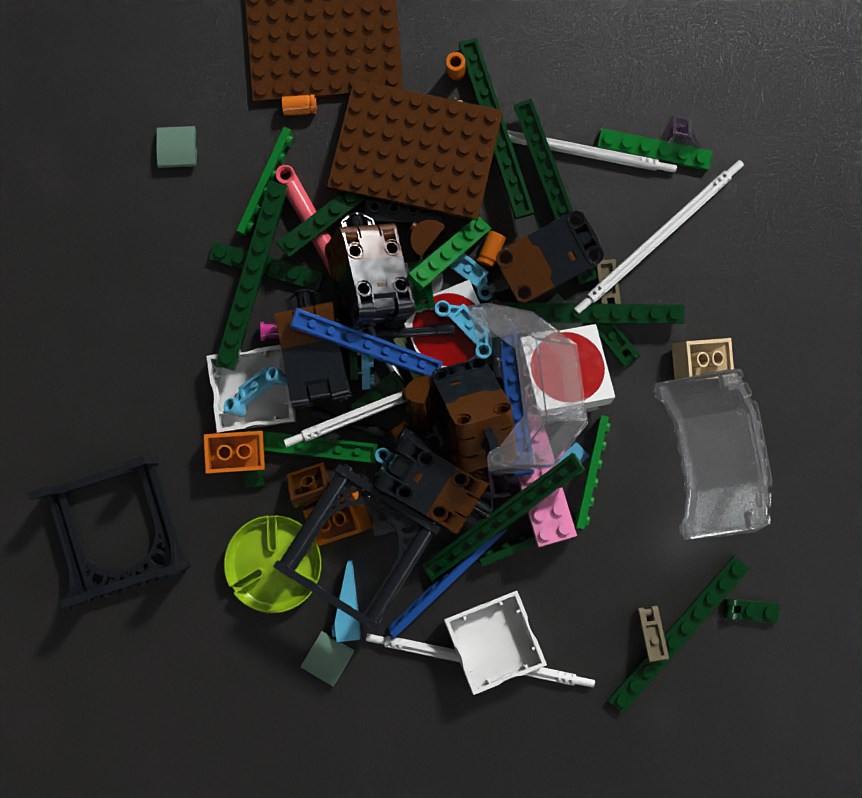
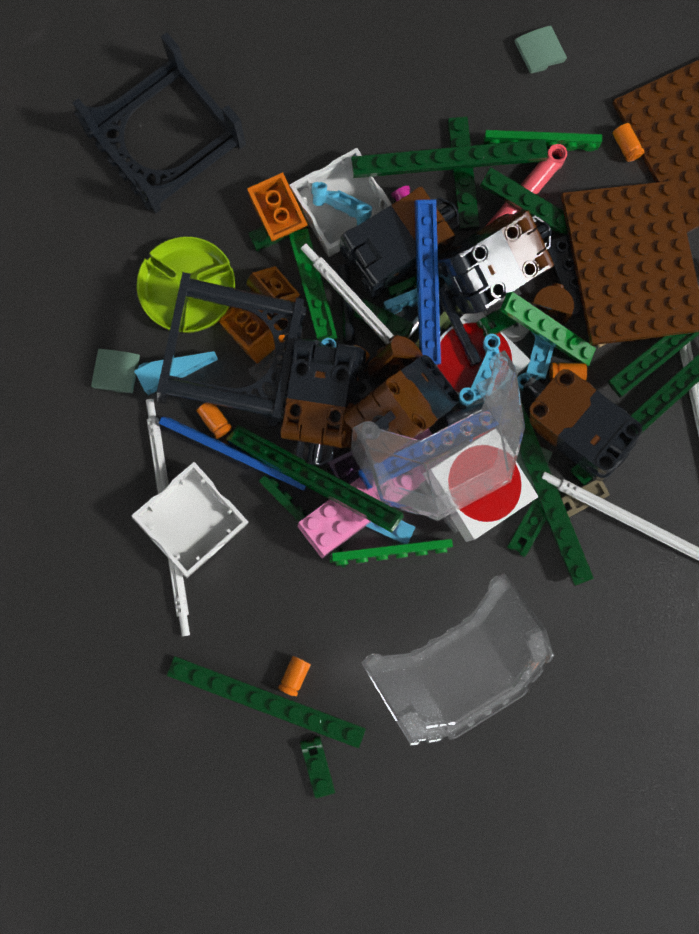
camera: 70 degrees right, 5 degrees down
(414, 584) = (214, 419): none -> orange piece
(653, 634) = (255, 674): dark tan plate -> none
(666, 600) = (294, 676): none -> orange piece
(701, 357) = (552, 613): tan slope -> none

